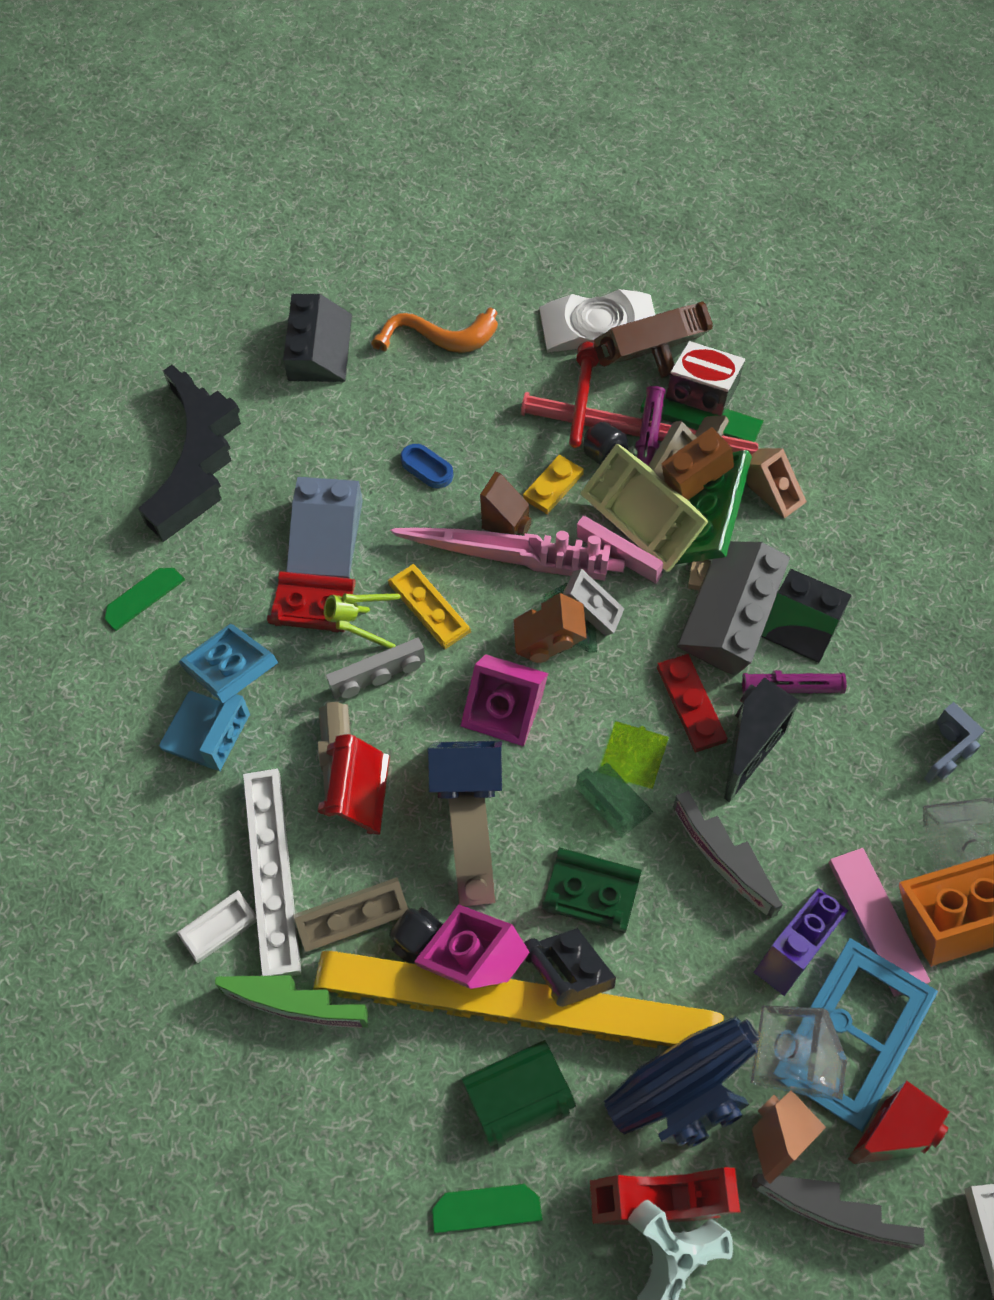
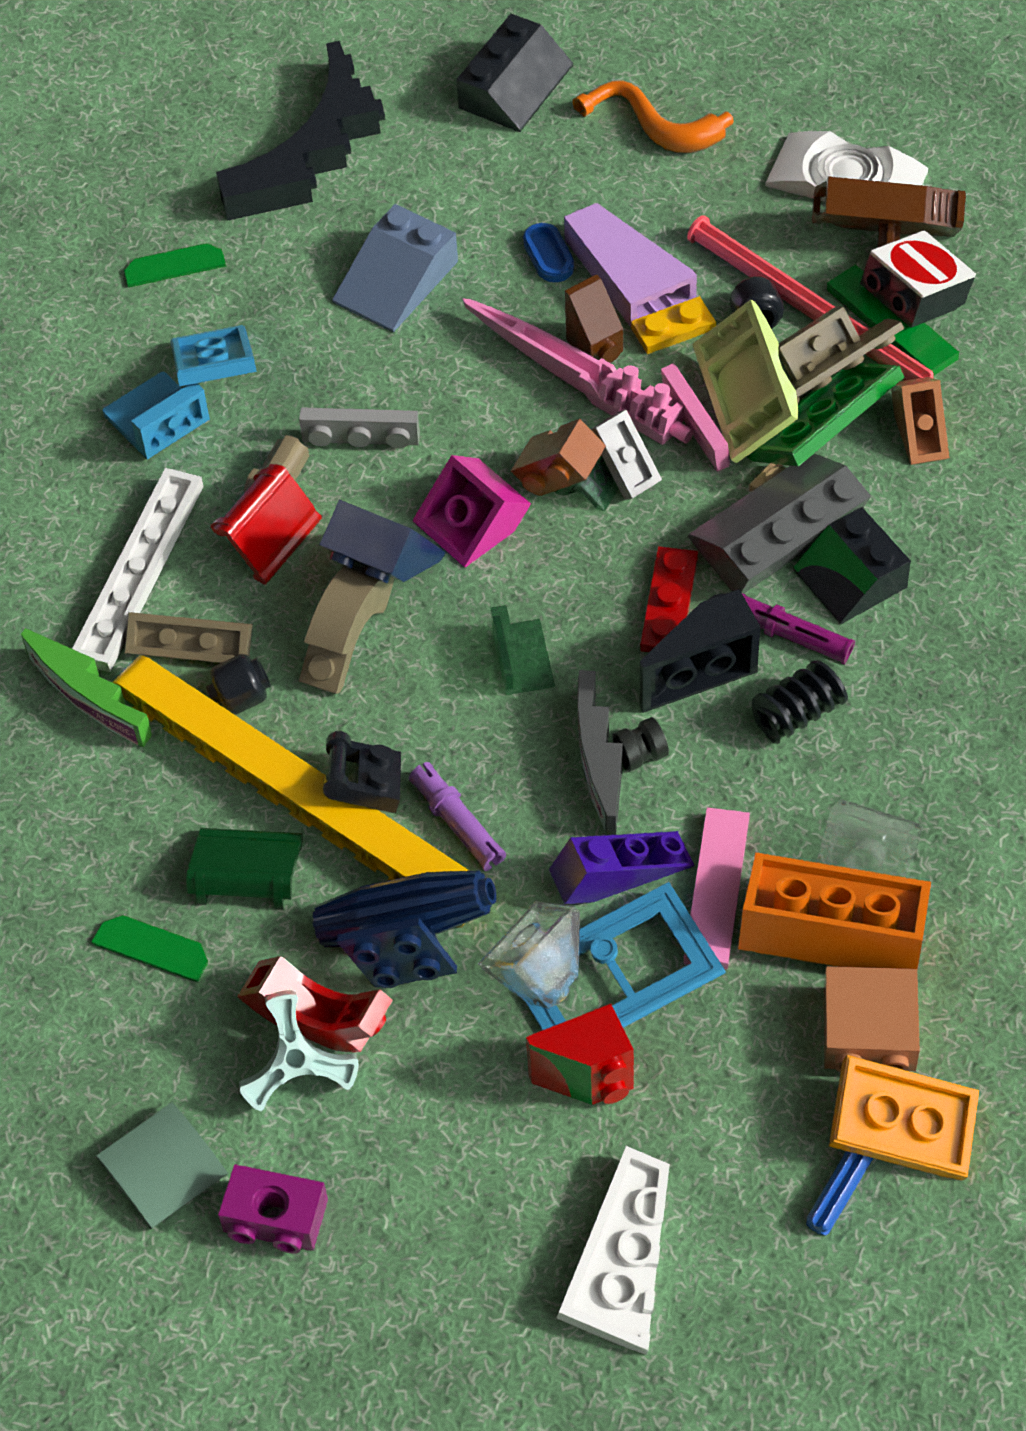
camera: 30 degrees right, 5 degrees down
(217, 926) = (58, 595): white tile -> none
(302, 600) = (339, 339): red piece -> none
(345, 609) = (357, 351): lime plant -> none
(429, 606) = (457, 392): yellow tile -> none
(474, 949) = (280, 712): dark pink slope -> none
(492, 448) = (632, 268): none -> lavender slope
(587, 359) = (799, 211): red piece -> none
(592, 890) = (441, 726): dark green piece -> none
(635, 753) = (576, 624): clear neon green piece -> none
(654, 400) = (819, 298): magenta pin -> none
(655, 962) = (445, 802): none -> medium lavender pin
(698, 463) = (827, 357): dark orange brick -> none
(754, 828) = (642, 743): none -> pearl dark grey wheel
(784, 1133) = (473, 1013): nougat slope -> none
(822, 1204) = (471, 1093): dark grey slope -> none
(839, 741) = (795, 698): none -> black piece
(957, 727) = (935, 766): sand blue bracket -> none

